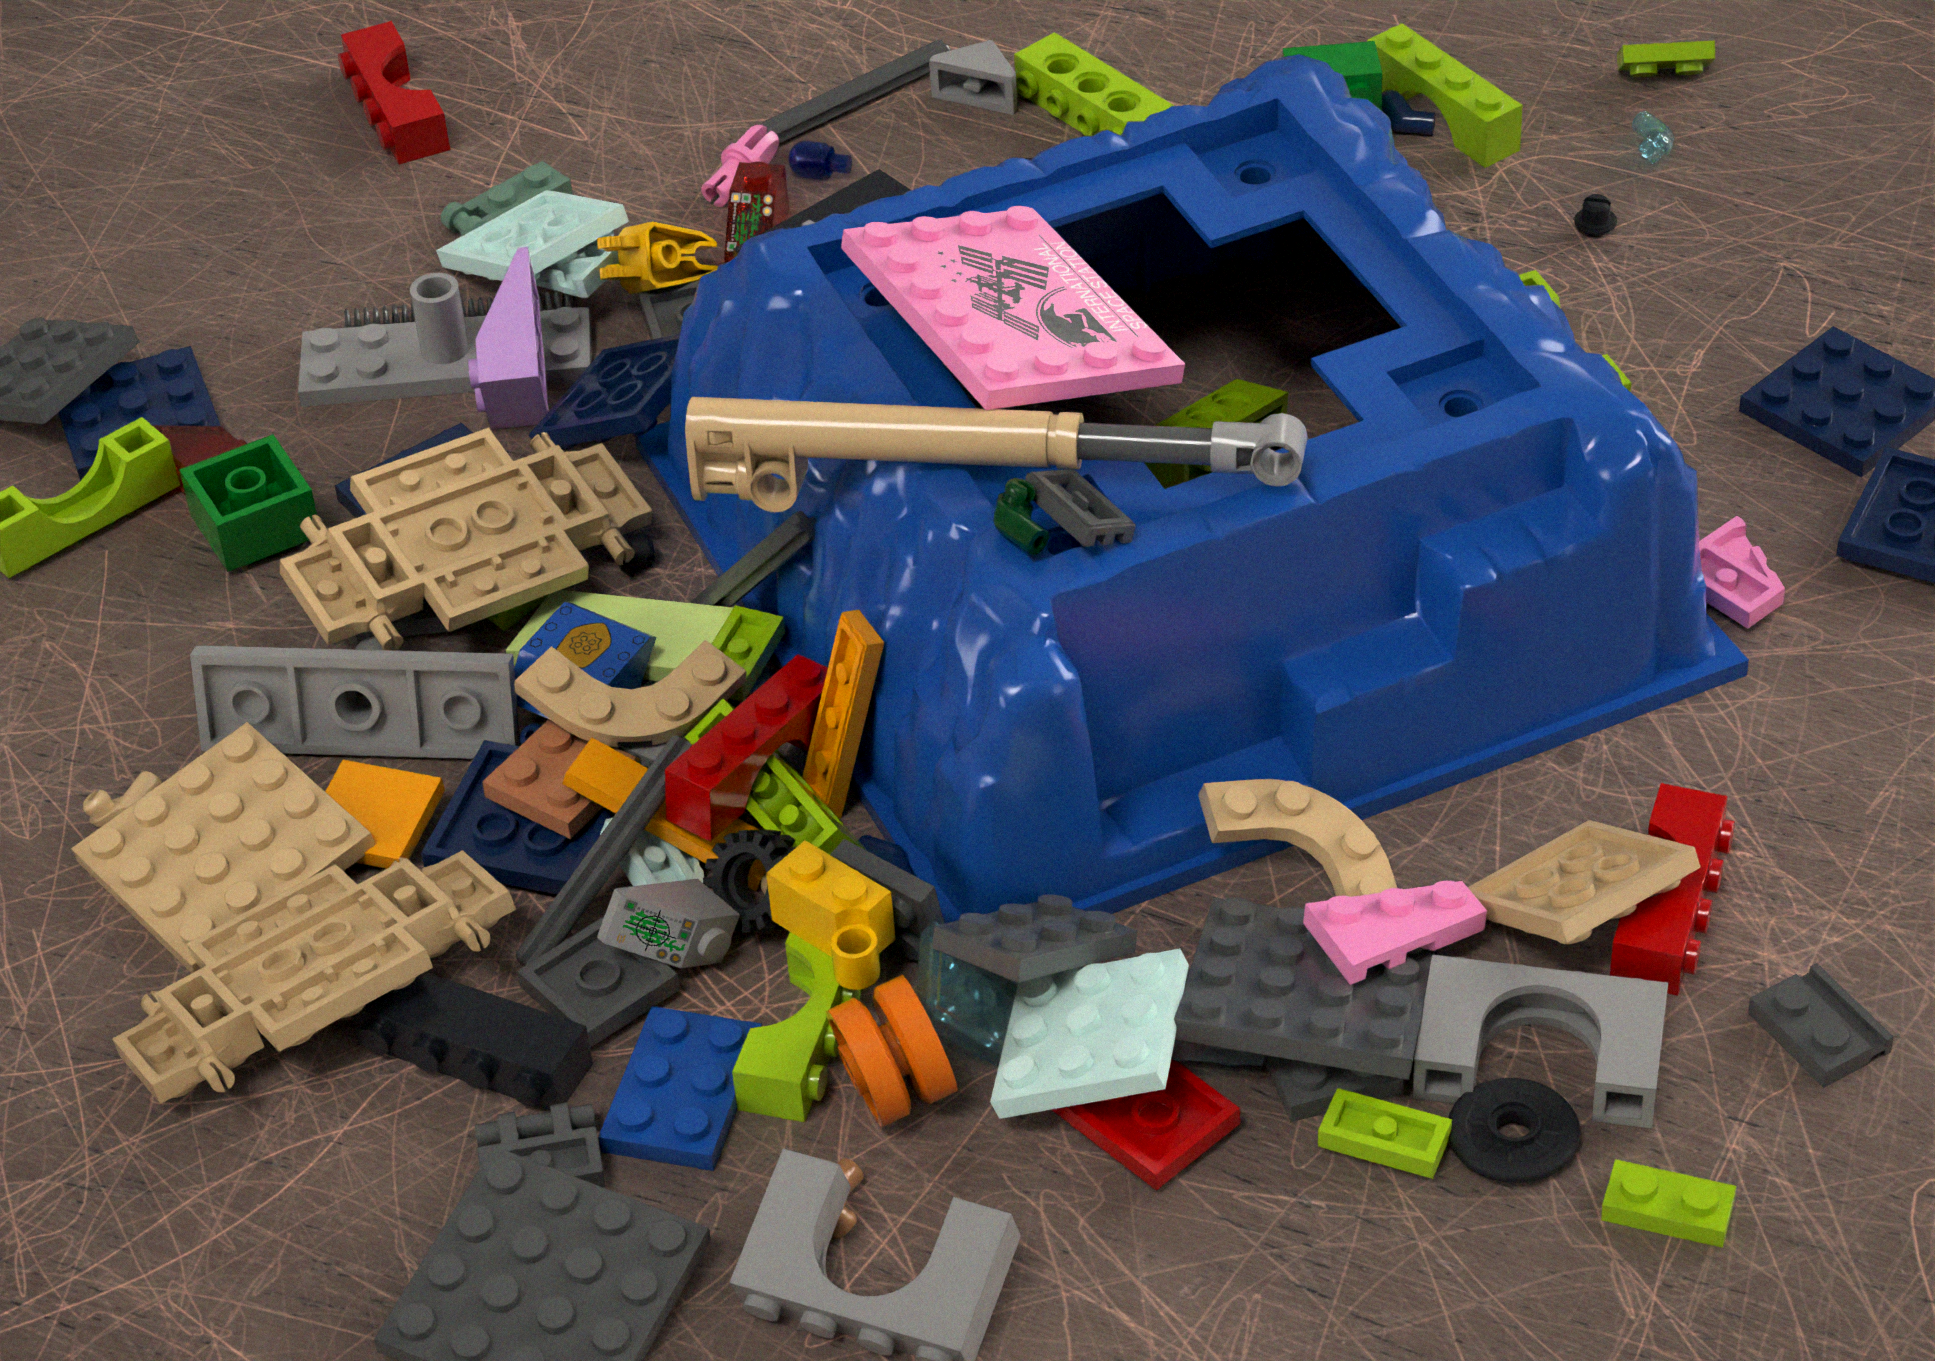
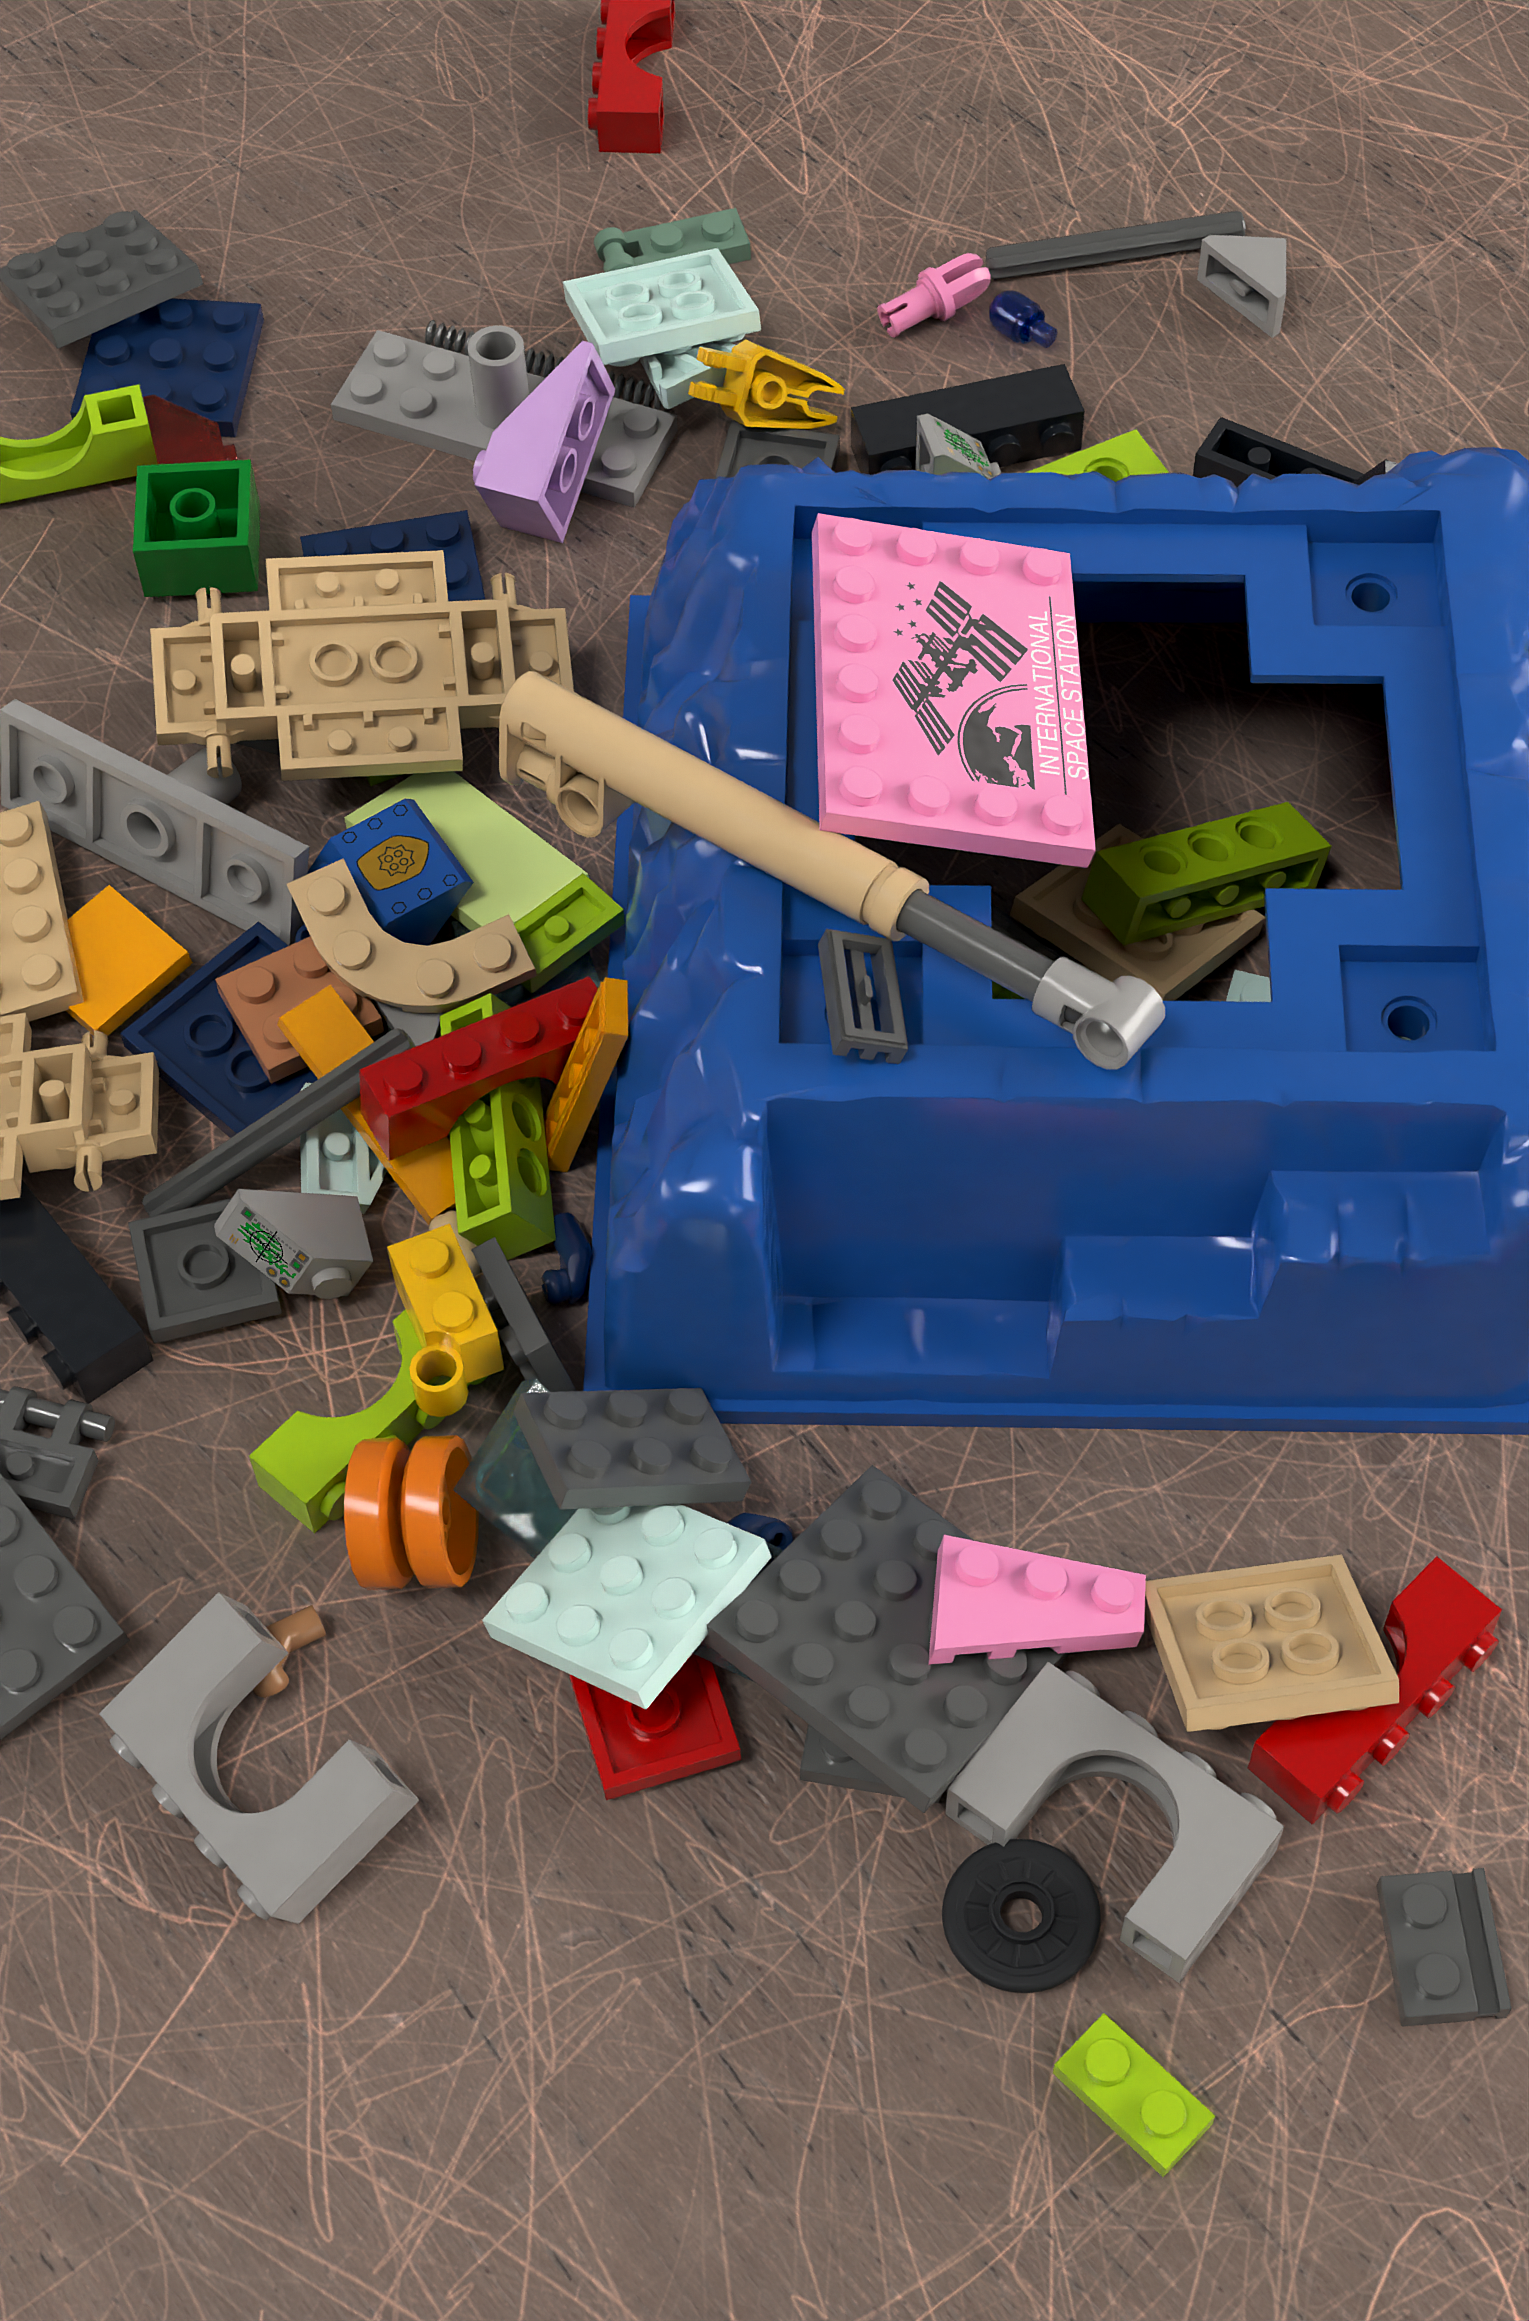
camera: 25 degrees right, 15 degrees up
(614, 395) = (615, 551): dark blue plate -> none
(677, 1090) = (194, 1444): blue plate -> none
(732, 872) = (406, 1206): black tyre -> none
(755, 202) = (916, 355): clear red slope -> none
(759, 562) = (607, 849): dark grey axle -> none
(1014, 515) = (785, 977): dark green arm -> none
(1081, 87) = (1362, 358): lime brick -> none
(1305, 819) = (1019, 1424): tan plate -> none
(1384, 1133) = (878, 1853): lime plate -> none

